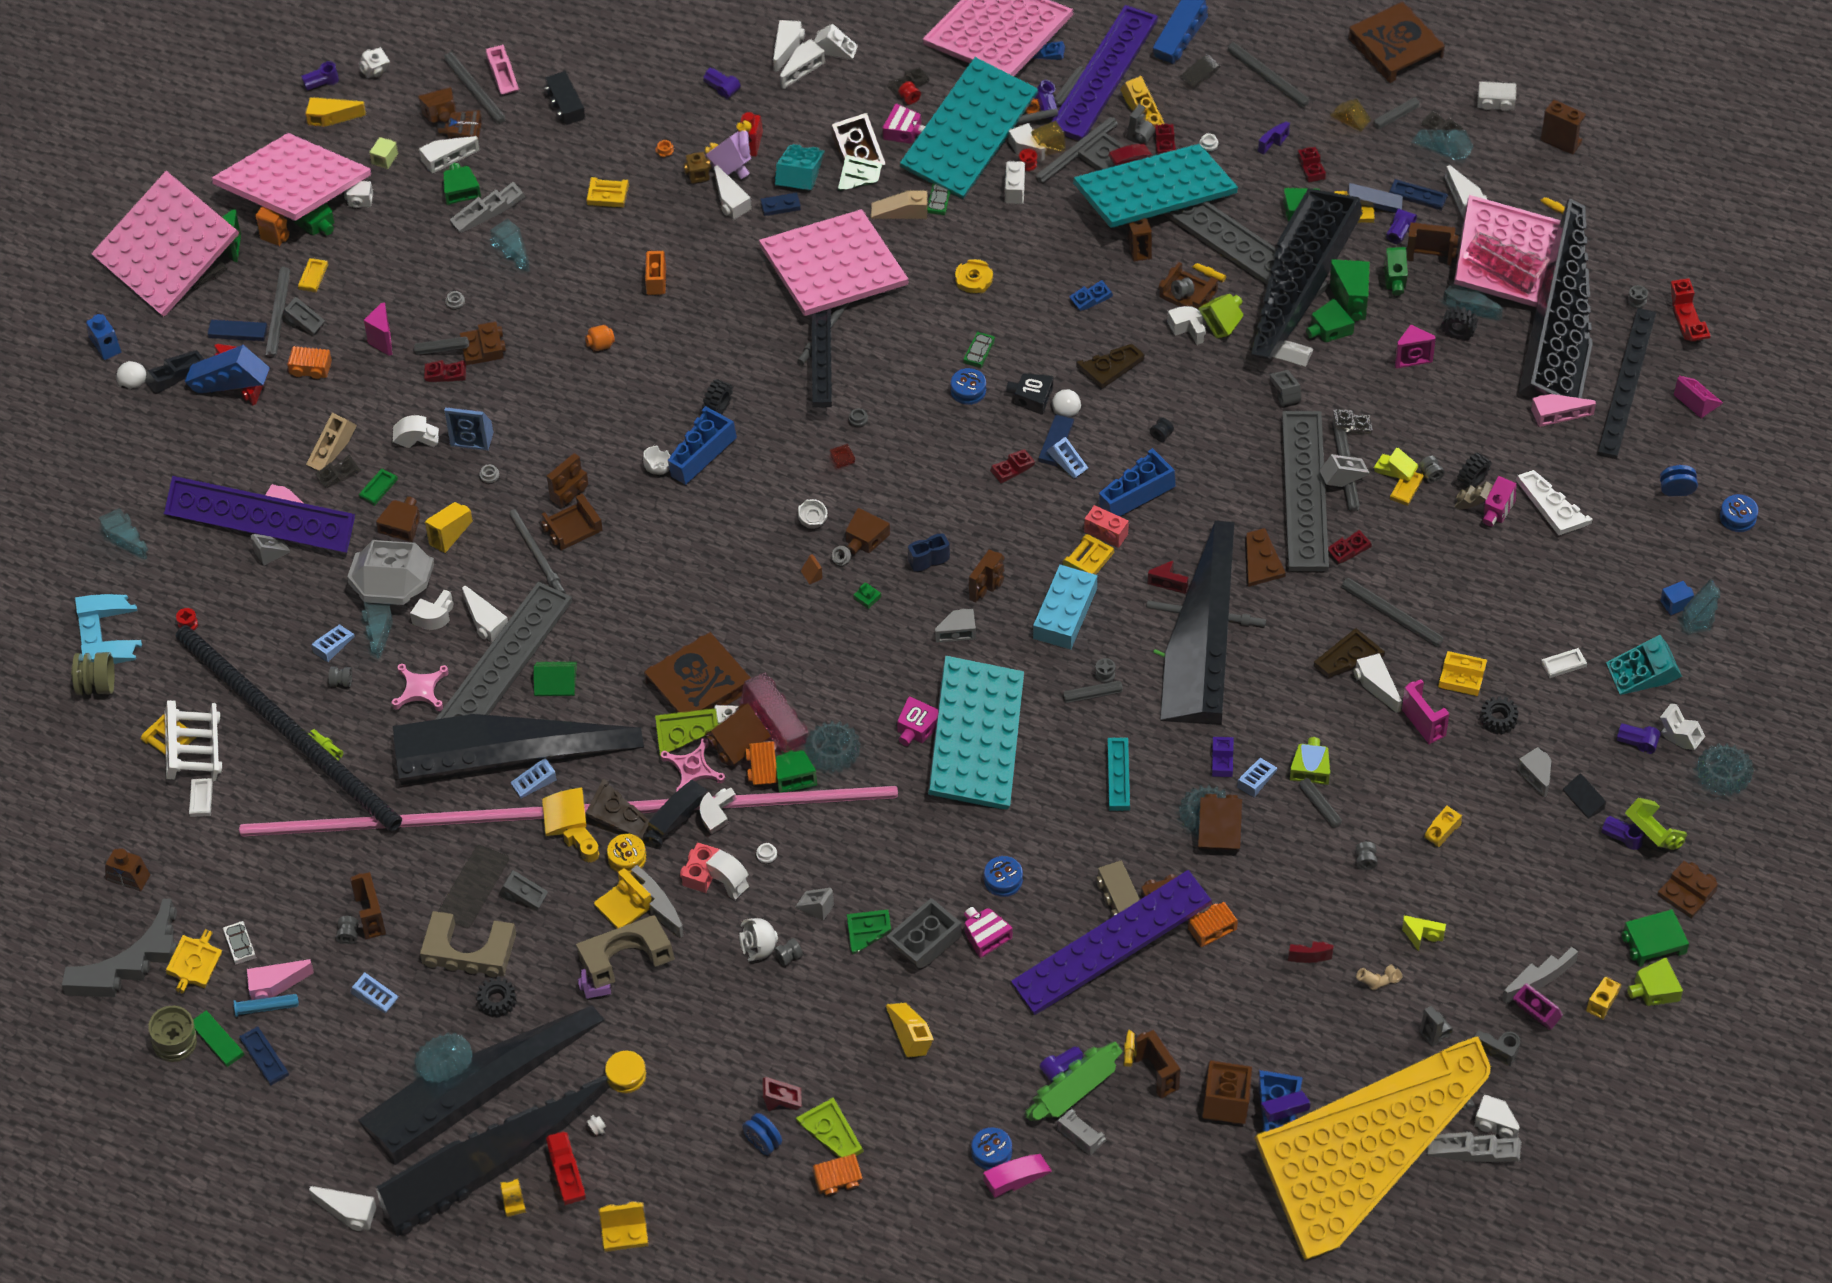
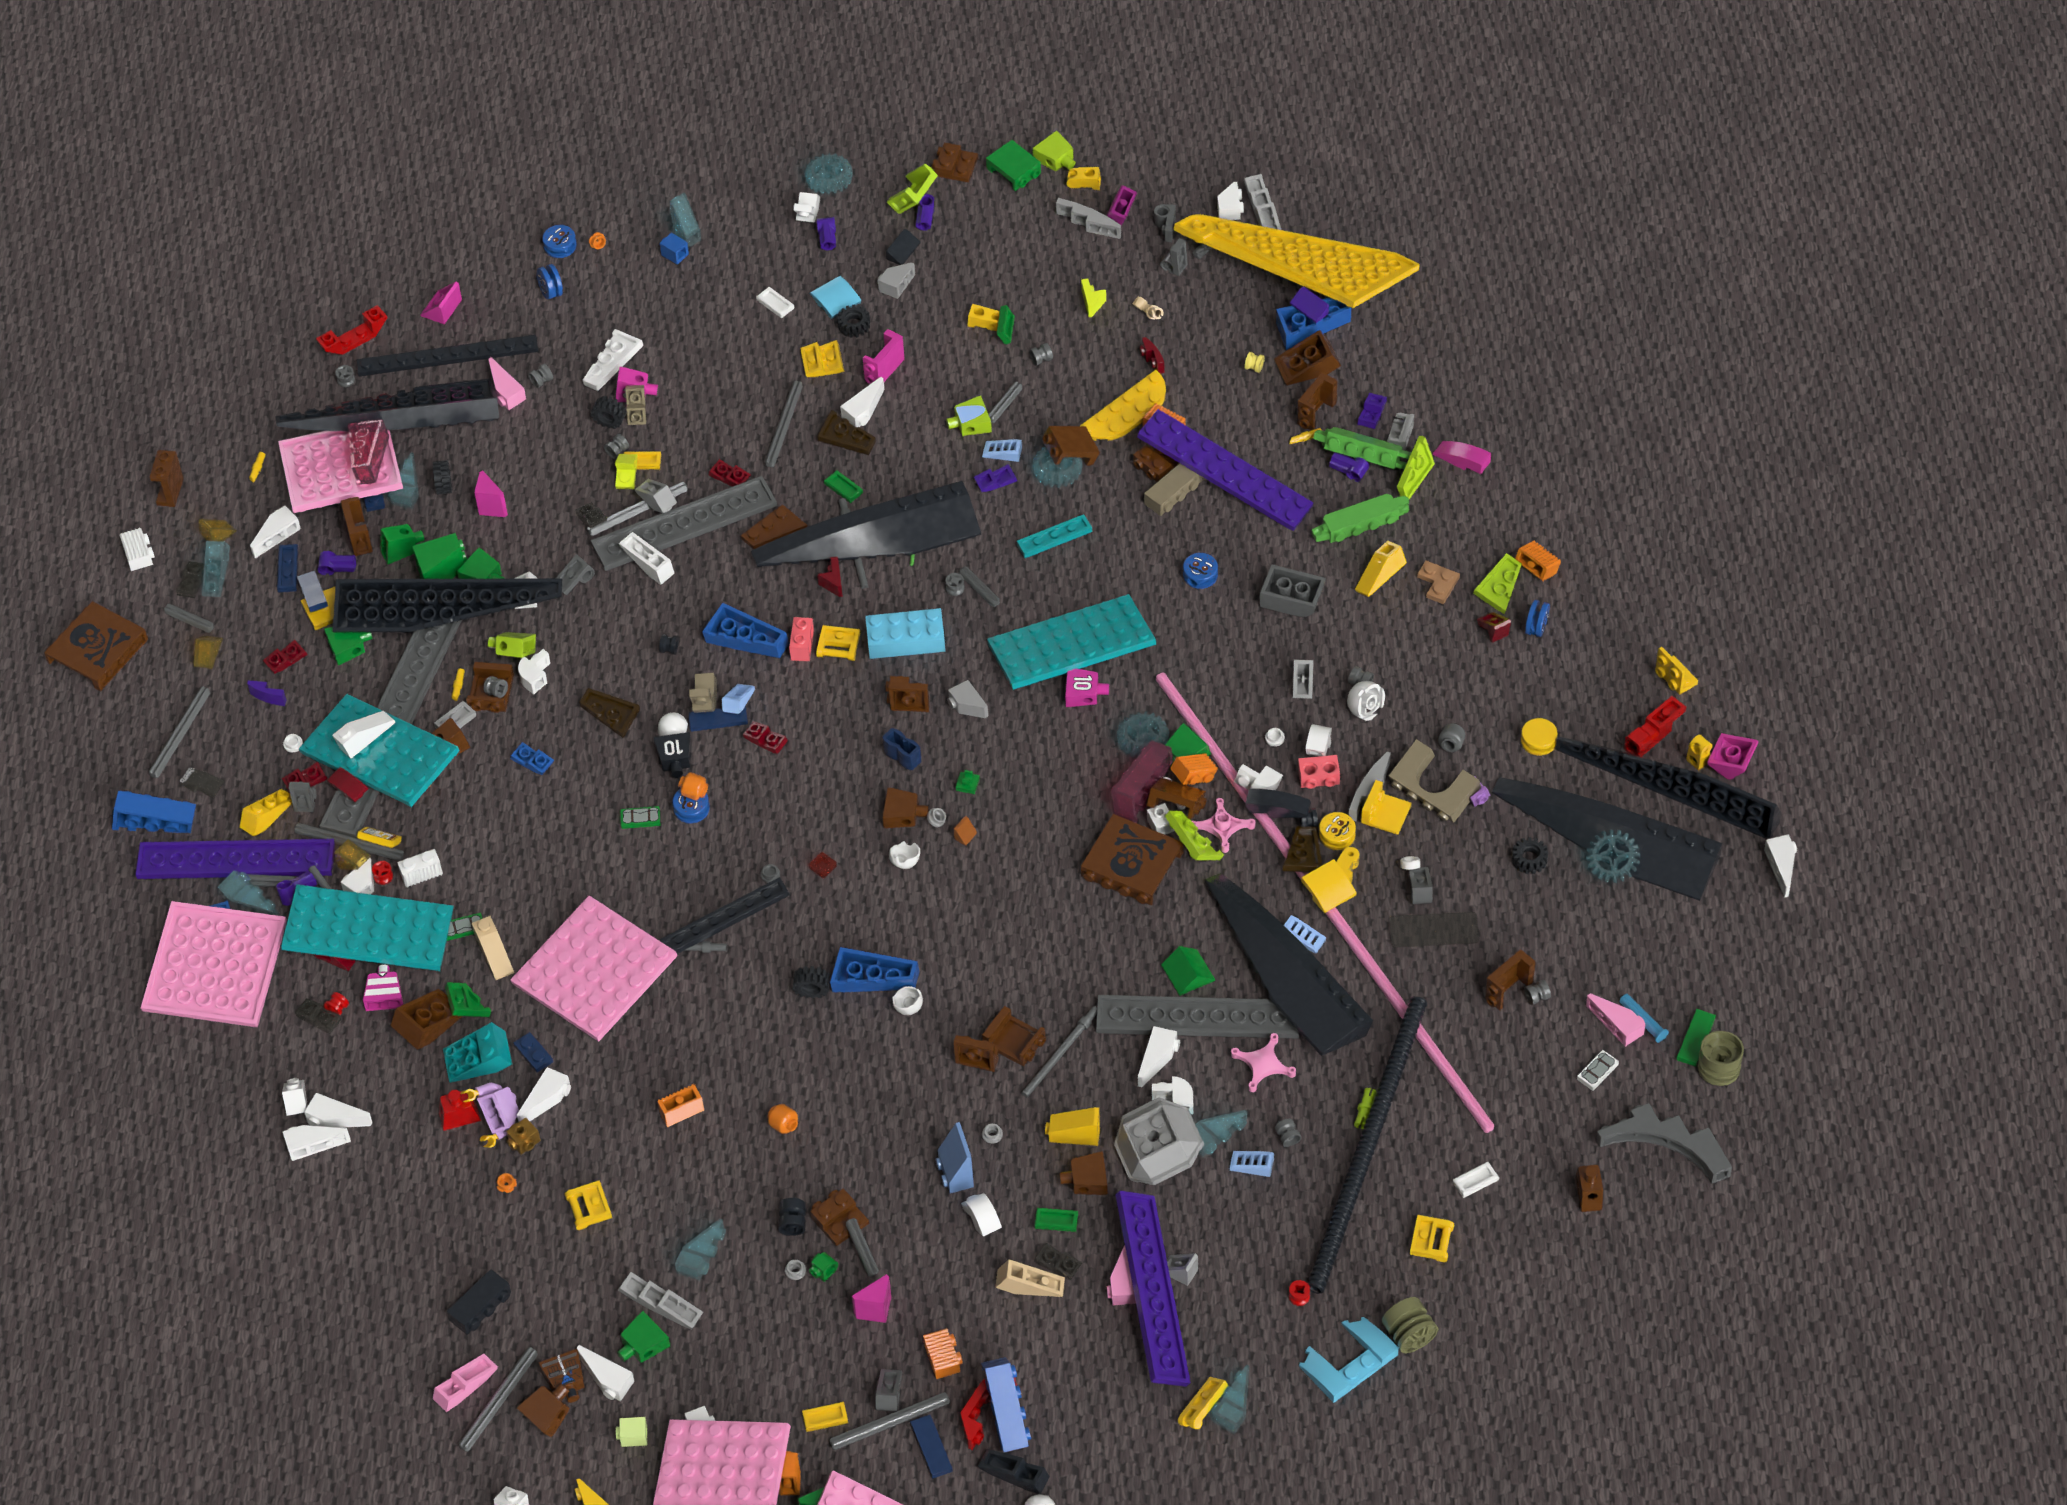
camera: 115 degrees left, 0 degrees up
(139, 512) = (1202, 1403): none -> yellow plate
(174, 748) = (1437, 1221): white fence -> none
(194, 961) = (1640, 1087): yellow plate -> none
(264, 1056) = (1688, 995): dark blue tile -> none
(363, 995) = (1581, 958): light blue slope -> none
(440, 372) = (888, 1233): dark red slope -> none
(443, 315) = (823, 1266): none -> green plate
(489, 960) = (1497, 875): dark tan arch -> none
(491, 1223) = (1732, 755): none -> dark pink slope
(501, 310) = (792, 1216): none -> black wheel
(552, 895) = (1410, 862): none -> white tile
(596, 1124) = (1597, 733): white plate -> none
(670, 995) = (1451, 737): none -> dark grey head
(725, 85) = (393, 1171): dark purple piece -> none
(867, 928) = (1304, 638): green wing -> none
(870, 1084) = (1442, 580): none -> medium nougat plate
(974, 285) = (553, 865): yellow plate -> none
(975, 380) = (693, 786): none -> orange head
(986, 930) = (1259, 558): dark pink torso -> none
(987, 1042) = (1361, 518): none -> bright green hinge
(991, 1148) = (1450, 479): blue head -> none
(1018, 1116) = (1416, 469): none -> lime wing
(1055, 66) = (240, 890): none -> clear light blue slope
(1067, 168) = (379, 837): none -> yellow tile
(1077, 431) = (704, 694): none -> dark tan arch
(1128, 1124) = (1372, 410): none -> dark purple slope
(1166, 254) = (460, 714): none -> light grey plate
(1172, 169) = (361, 732): none -> white slope
(1251, 1040) = (1254, 362): none -> light yellow wheel
(1252, 905) = (1128, 409): none -> yellow plate
(1268, 442) = (648, 558): none -> white slope
(1283, 631) = (843, 486): none -> green tile
(1423, 840) = (1005, 324): none -> green tile
(1488, 153) = (215, 529): none -> clear yellow slope
(1542, 713) = (835, 296): none -> medium azure slope
(1557, 440) = (541, 375): none -> dark grey wheel
(1644, 667) = (754, 249): teal slope -> none
(1725, 544) = (600, 243): none -> orange plate

